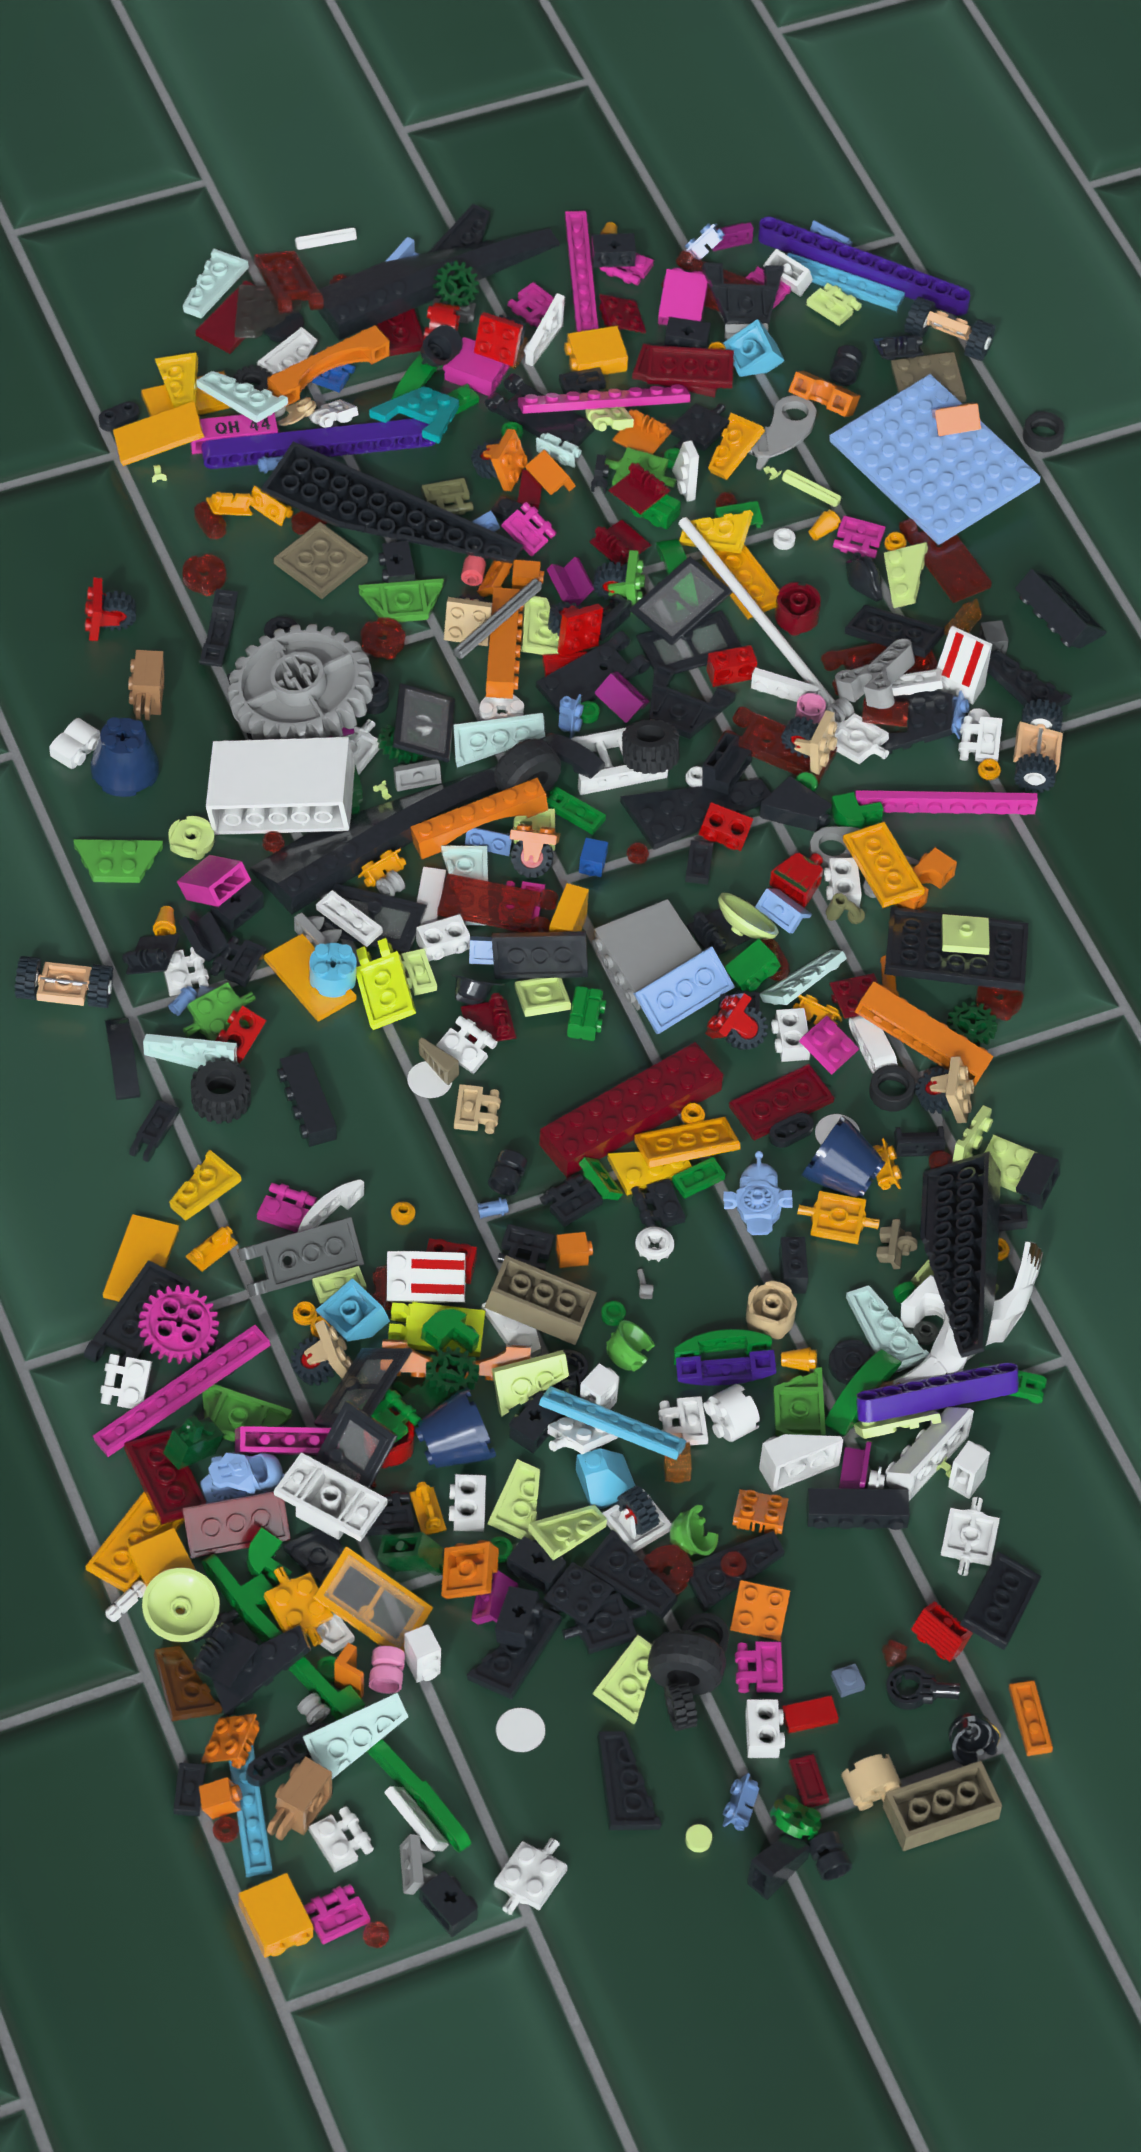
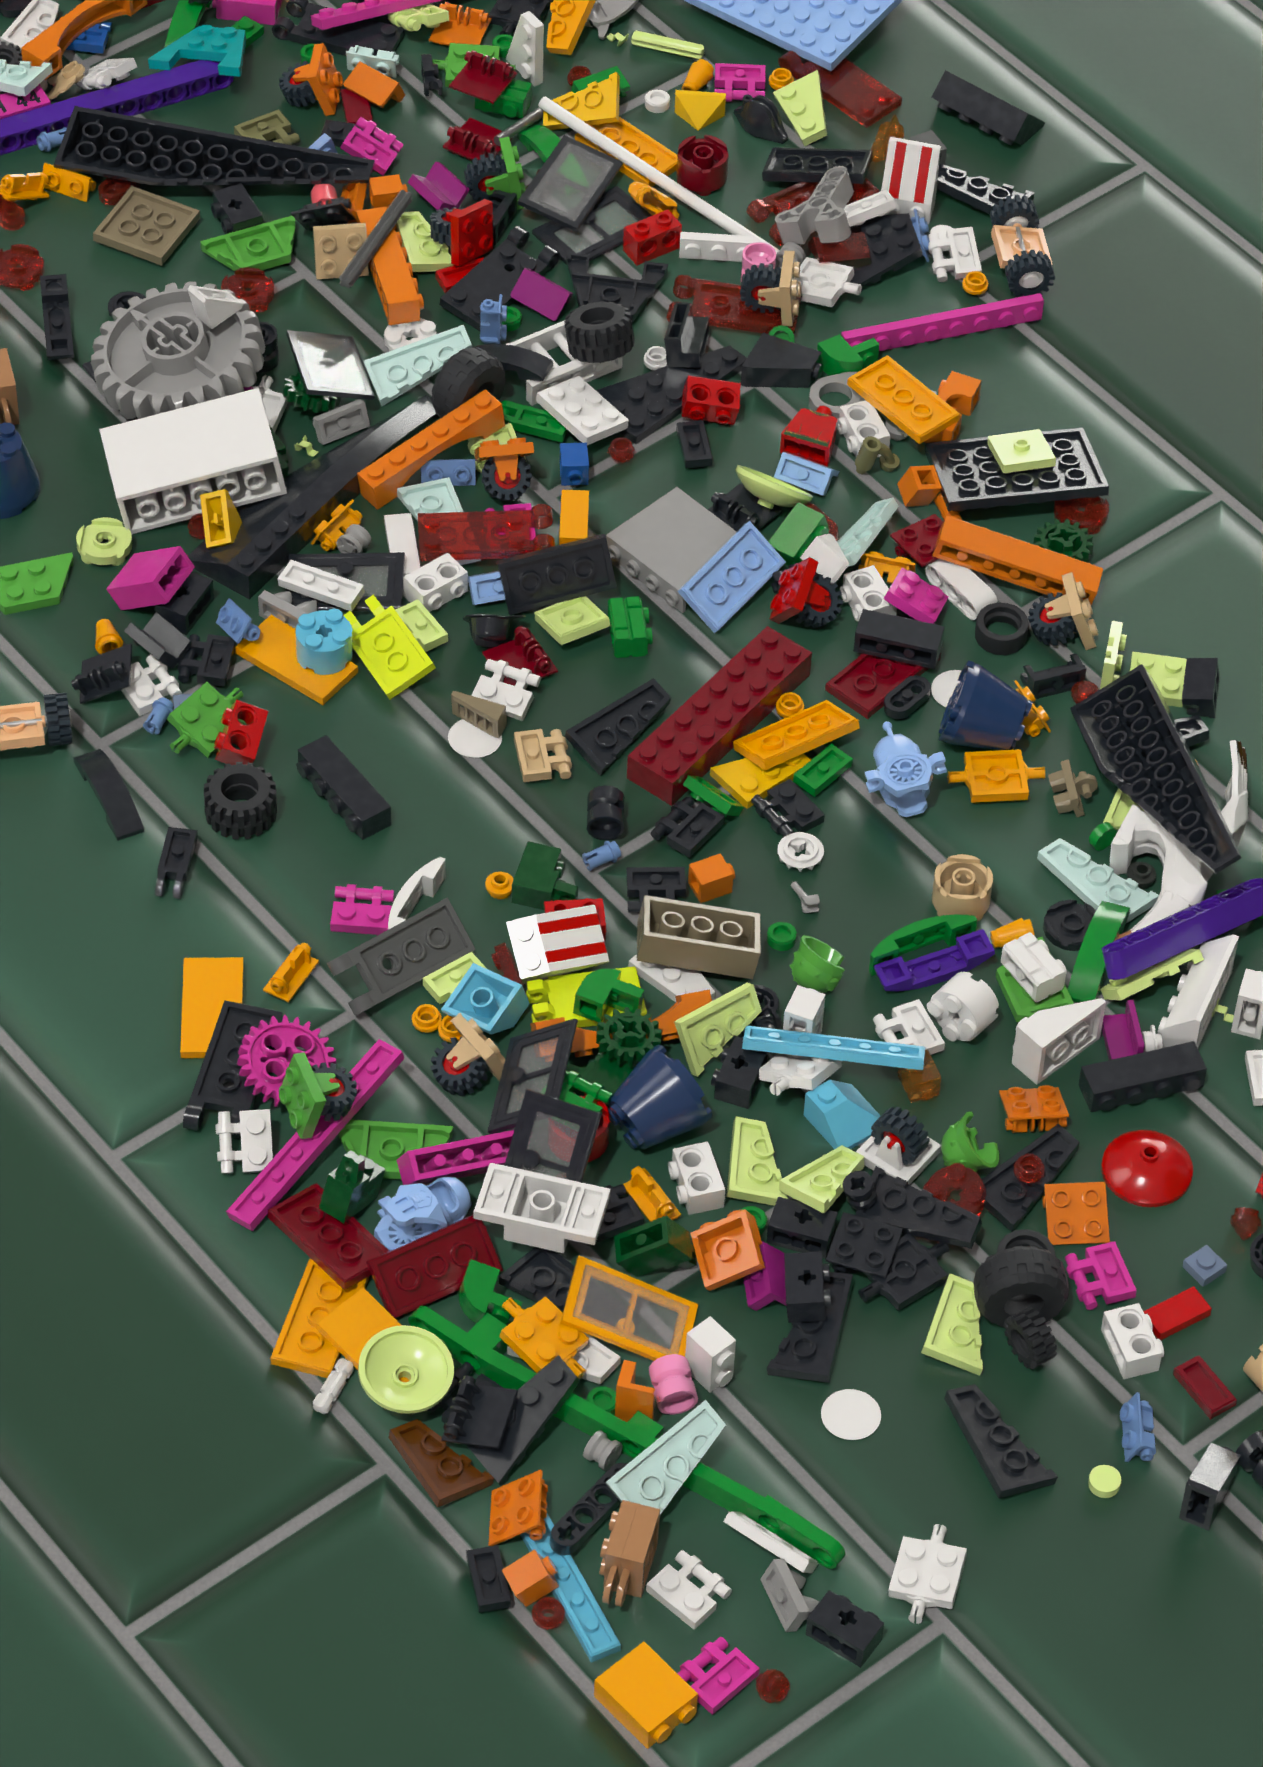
camera: 15 degrees left, 5 degrees down
(187, 1050) = (186, 766): light aqua wing -> none
(188, 1359) = (315, 1092): none -> bright green plate
(206, 1185) = (258, 908): yellow wing -> none
(270, 935) = (237, 622): none -> medium blue hinge
(286, 841) = (219, 518): none -> yellow slope
(337, 653) = (213, 305): none -> white slope
(433, 1216) = (539, 877): none -> dark green hinge
(464, 583) = (324, 215): none -> black hinge
(543, 1099) = (618, 725): none -> black wing
(591, 1553) = (859, 1198): none -> black wheel
(616, 811) = (582, 410): none -> white plate
(657, 538) = (519, 125): none -> flat silver bar
(745, 632) = (652, 199): none -> light orange animal
(765, 992) = (829, 555): none -> white slope
(793, 1264) = (966, 832): black brick -> none
(796, 1818) = (1209, 1428): green plate -> none
(801, 1078) = (898, 638): none -> black brick
(801, 1393) = (1034, 966): none -> white brick
(816, 554) = (699, 107): none -> yellow slope
(832, 1597) = (1147, 1179): none -> red dish
(870, 945) = (919, 485): none -> orange brick

